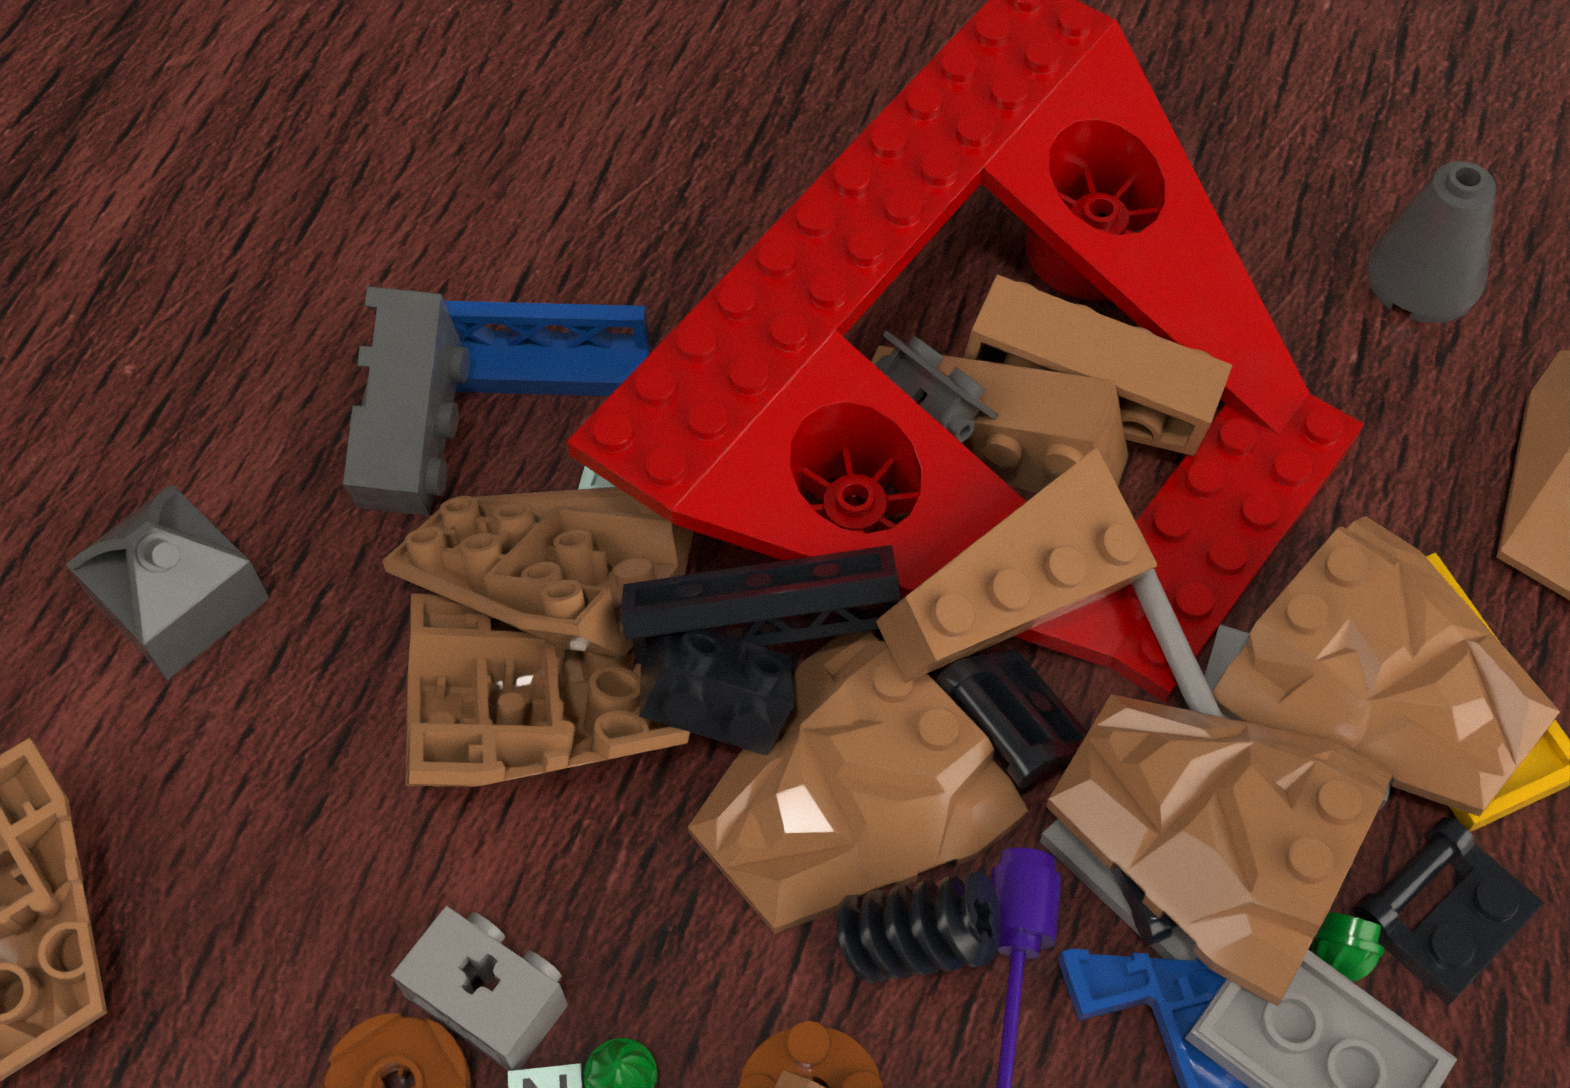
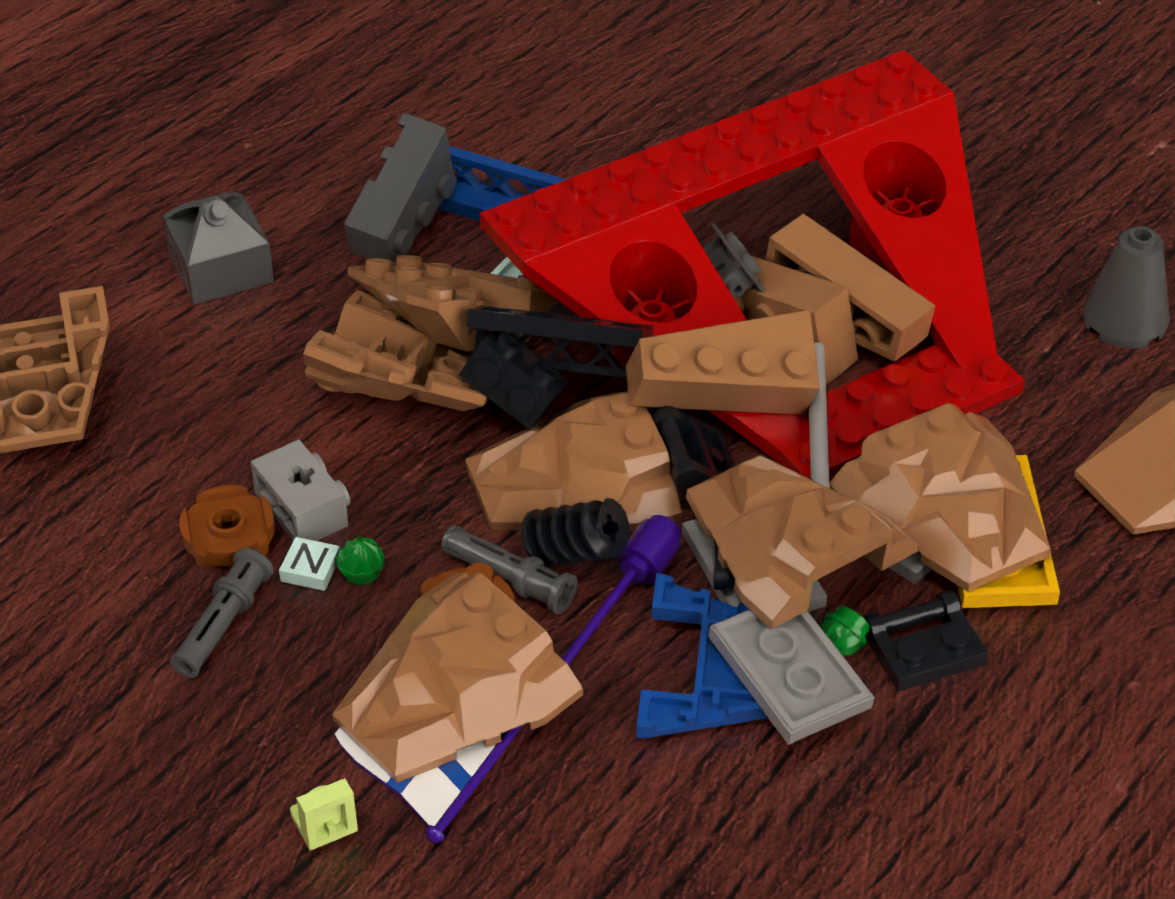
camera: 20 degrees right, 15 degrees down
(873, 1013) = (525, 575): none -> dark grey pin

